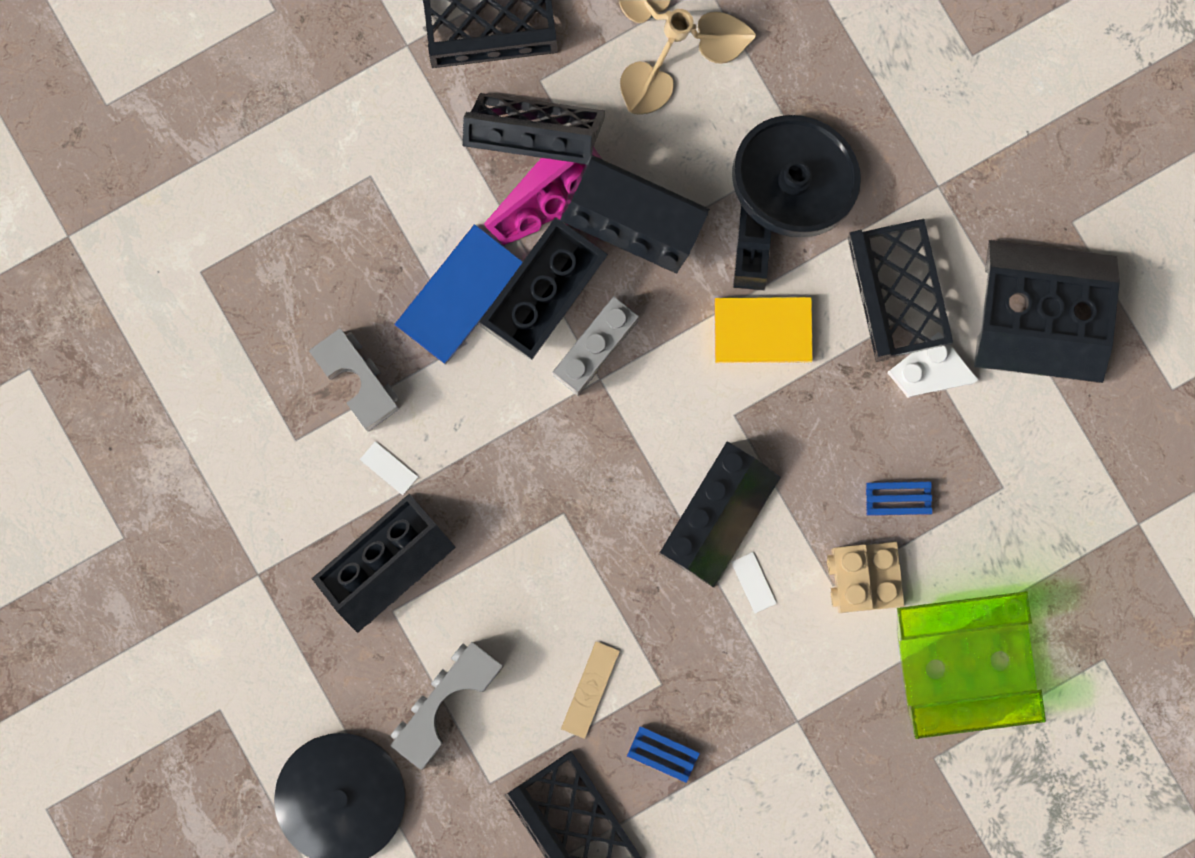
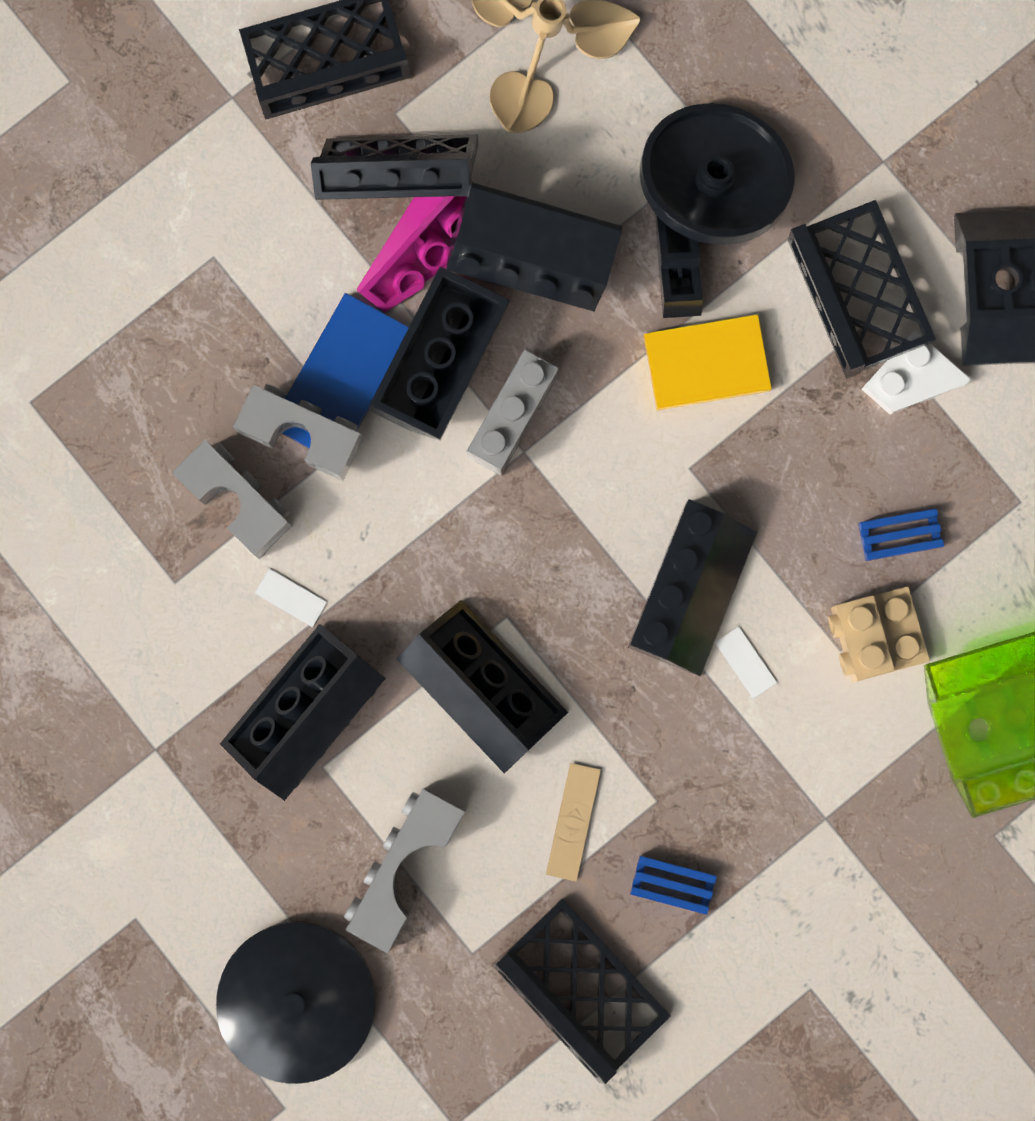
camera: 10 degrees left, 0 degrees up
(395, 315) = (269, 414): none -> light grey arch
(533, 566) = (482, 685): none -> black slope

